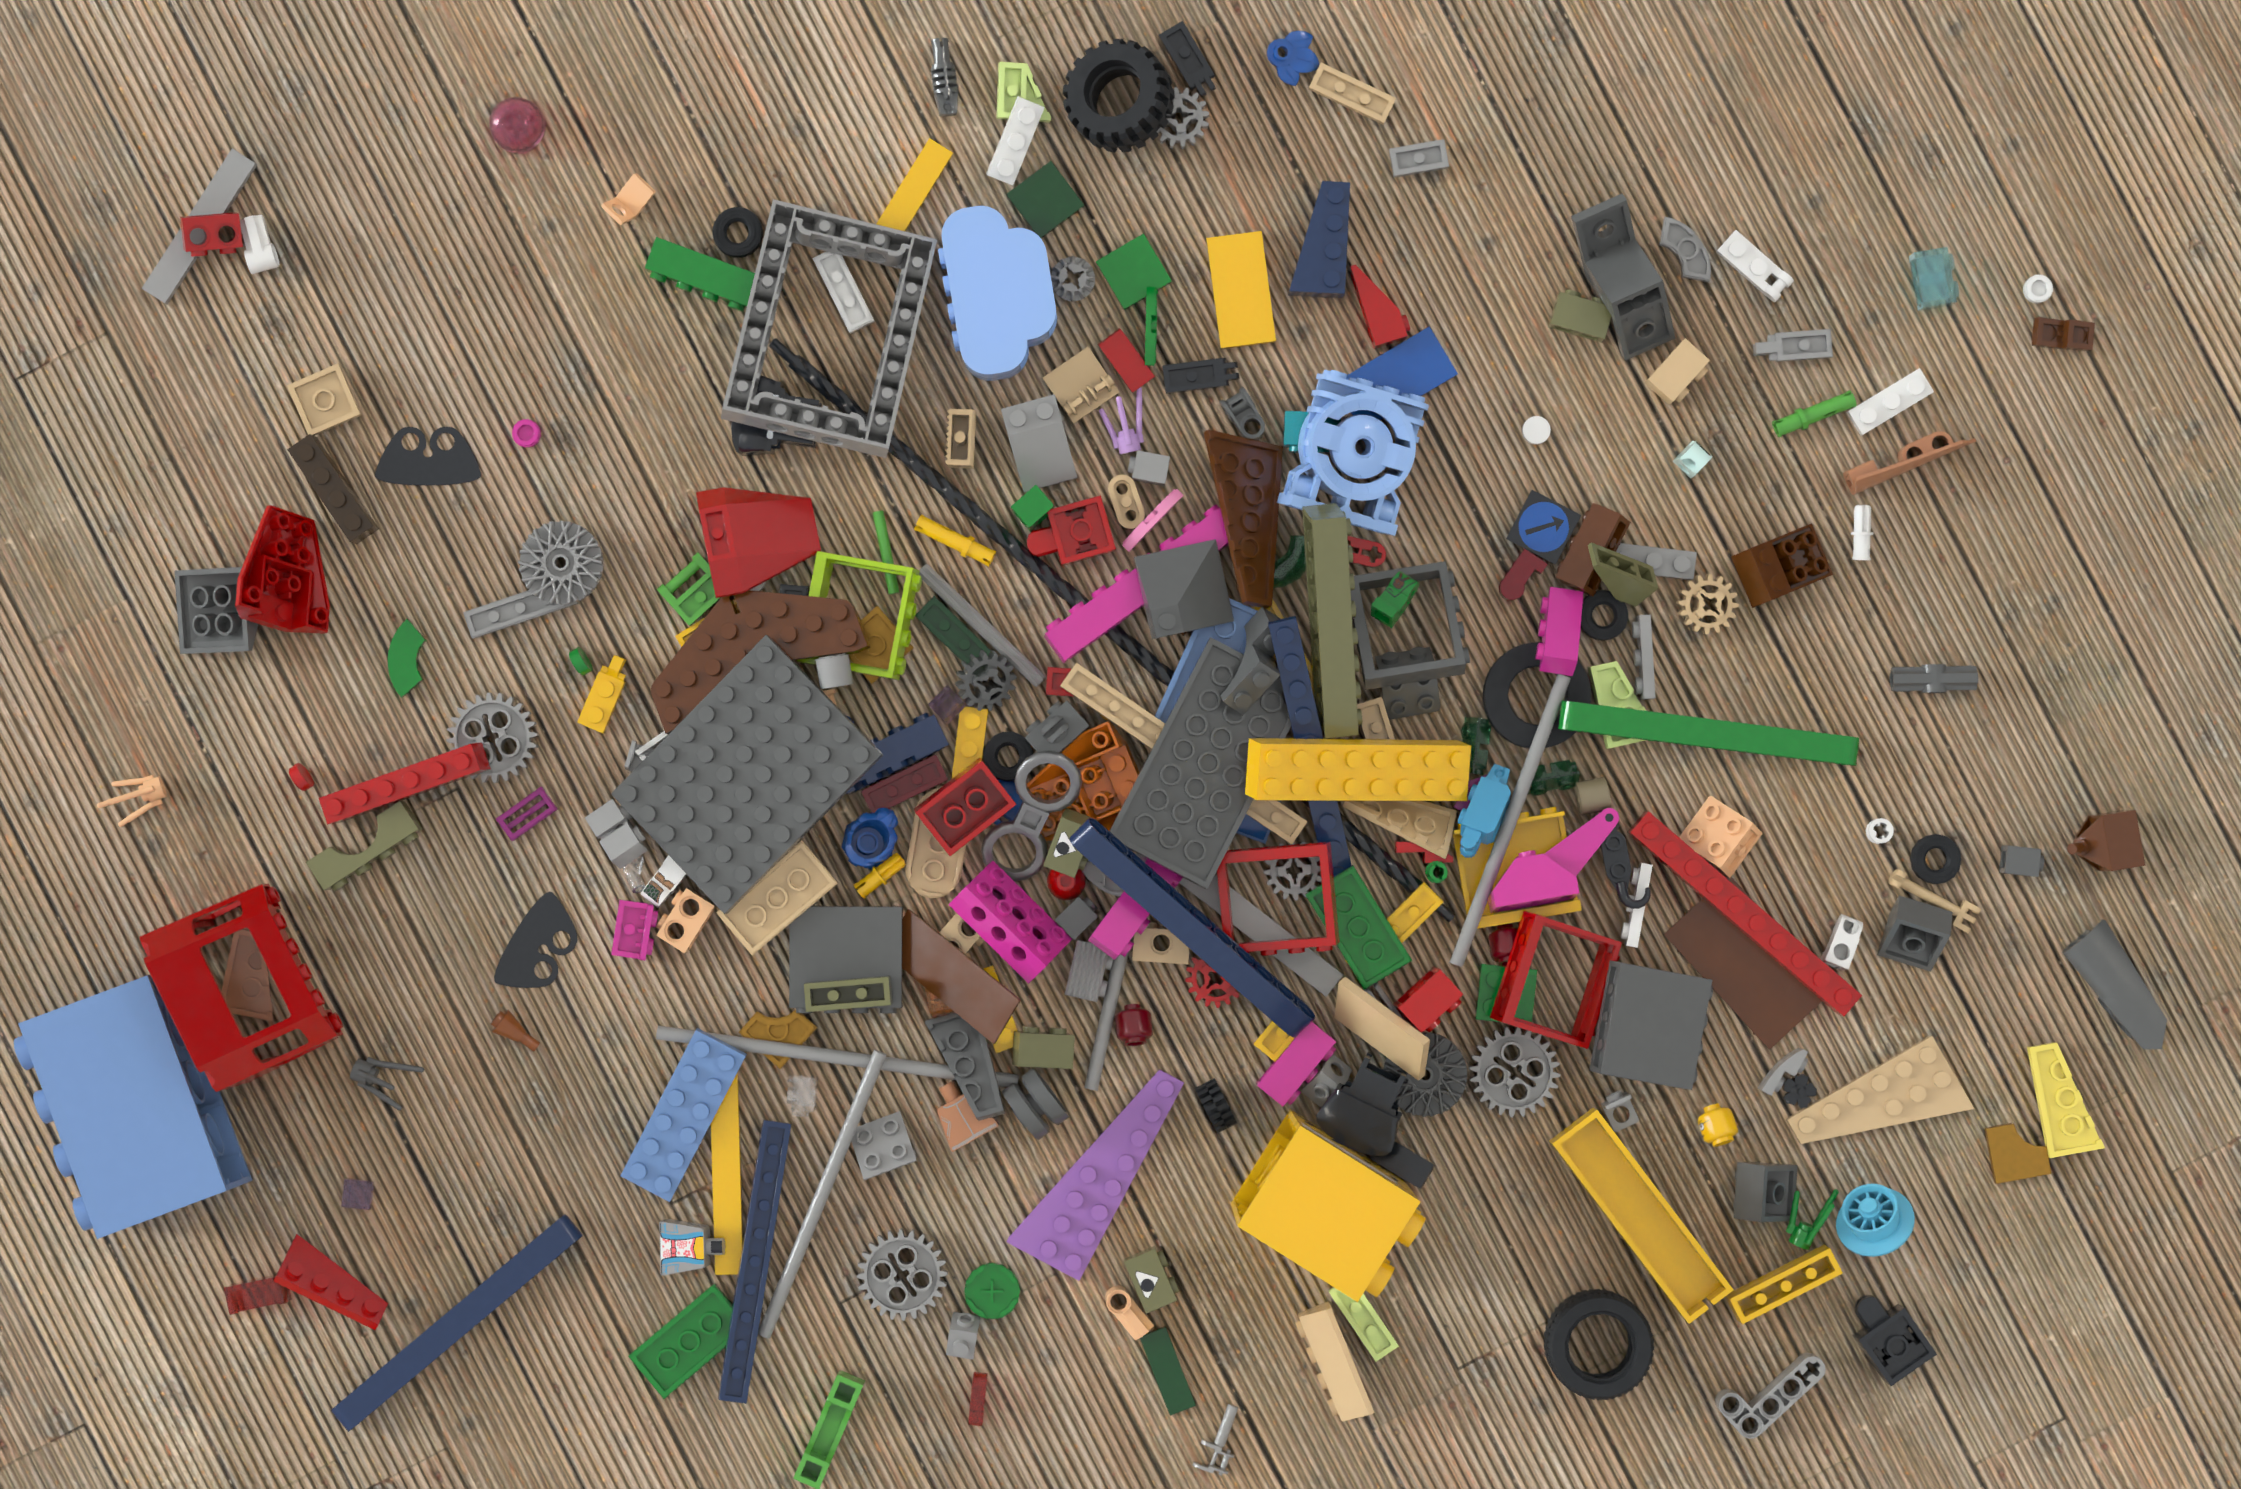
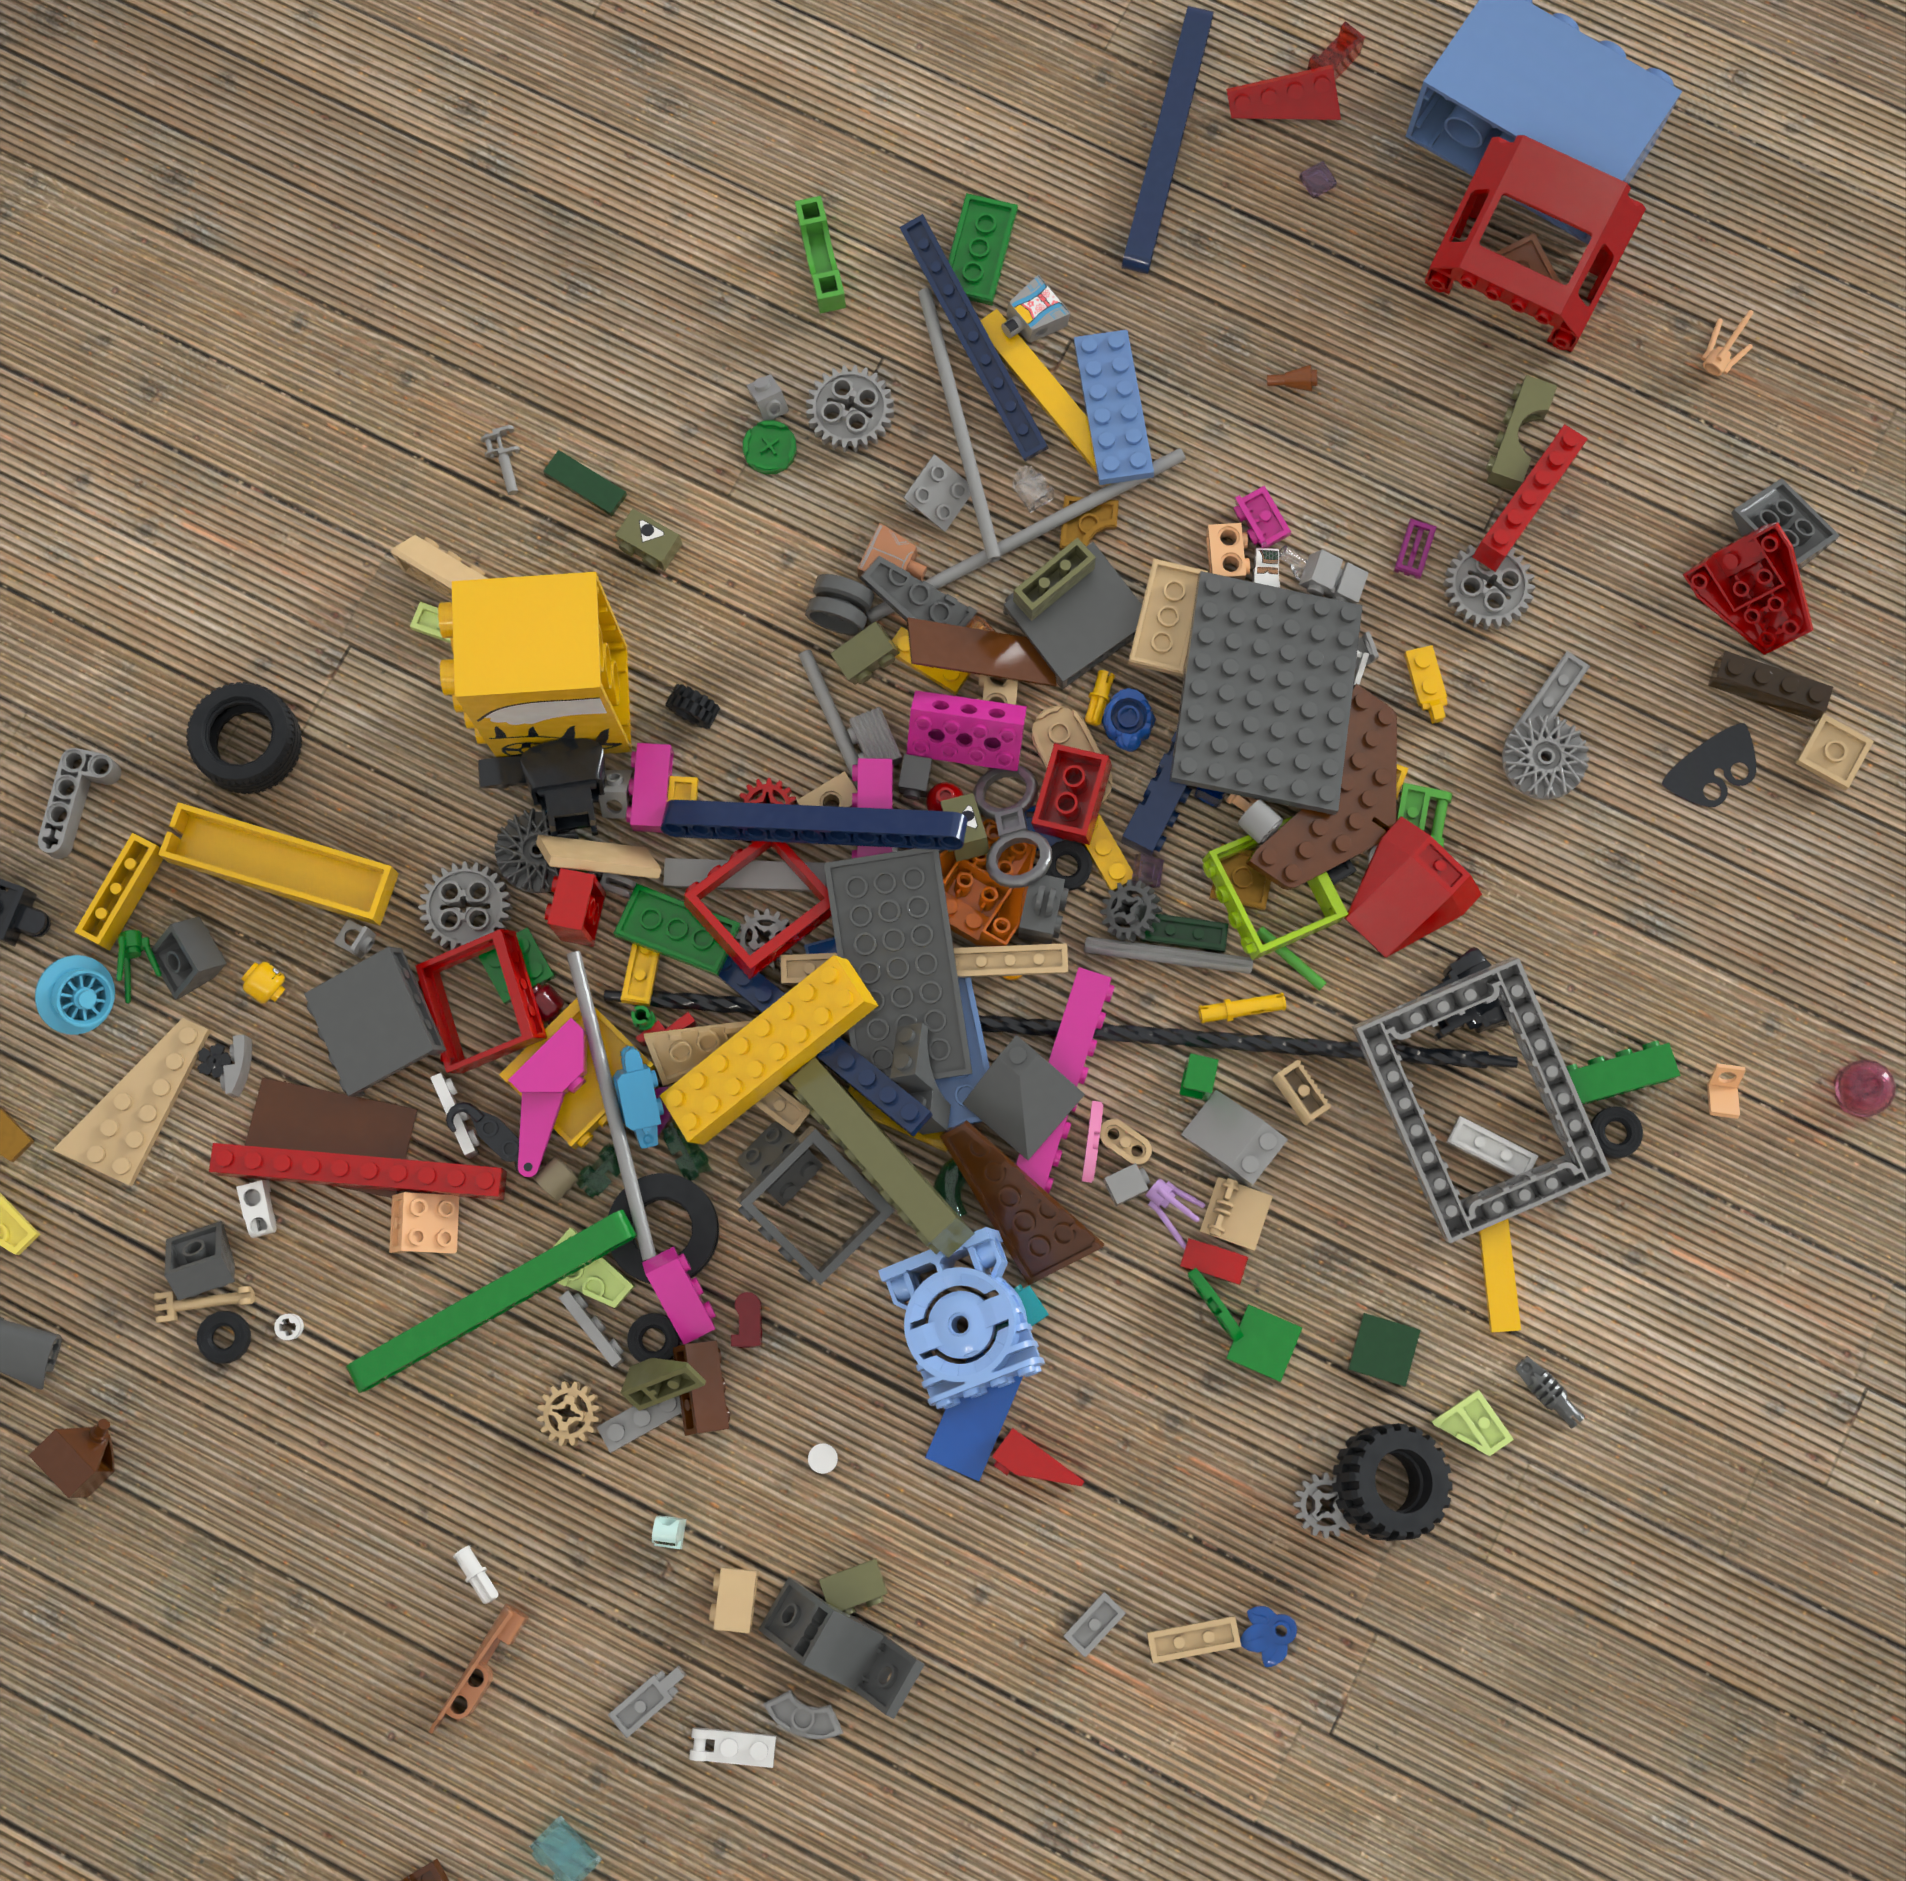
camera: 145 degrees right, 10 degrees down
(301, 777) = (1612, 450): red tile -> none
(366, 1075) = (1381, 268): dark grey plant -> none
(403, 658) = (1607, 598): green tile -> none
(522, 952) = (1337, 469): black piece -> none
(526, 433) = (1653, 843): dark pink tile -> none
(580, 661) = (1467, 694): green tile -> none
(905, 784) = (1133, 782): dark red plate -> none
(978, 1397) = (720, 358): clear red beam -> none
(997, 291) = (1366, 1236): light blue brick -> none
(1015, 140) = (1448, 1380): white plate -> none
(1055, 677) = (1076, 955): red tile -> none
(1069, 291) = (1298, 1306): light grey gear -> none
(1074, 532) = (1149, 1083): red brick -> none
(1081, 1205) = (746, 560): medium lavender wing -> none
(1129, 1313) = (648, 503): light nougat piece -> none
(1134, 1025) = (806, 724): dark red head -> none
(1188, 58) = (1357, 1564): black hinge -> none
(1198, 375) = (1144, 1293): black hinge -> none
(1241, 290) = (1162, 1394): yellow tile -> none
(1243, 413) = (1082, 1288): dark grey piece -> none
(1324, 250) = (1118, 1482): dark blue wedge -> none
(1366, 545) = (899, 1252): red beam -> none
(1394, 599) = (839, 1218): green leg -> none
(1543, 527) = (757, 1377): piece -> none
(1781, 565) = (527, 1494): reddish brown slope -> none
(1803, 418) = (595, 1642): bright green pin -> none
(1890, 402) = (529, 1712): white plate -> none
(1933, 678) = (327, 1492): dark grey piece -> none
(2021, 861) = (146, 1387): dark grey brick -> none

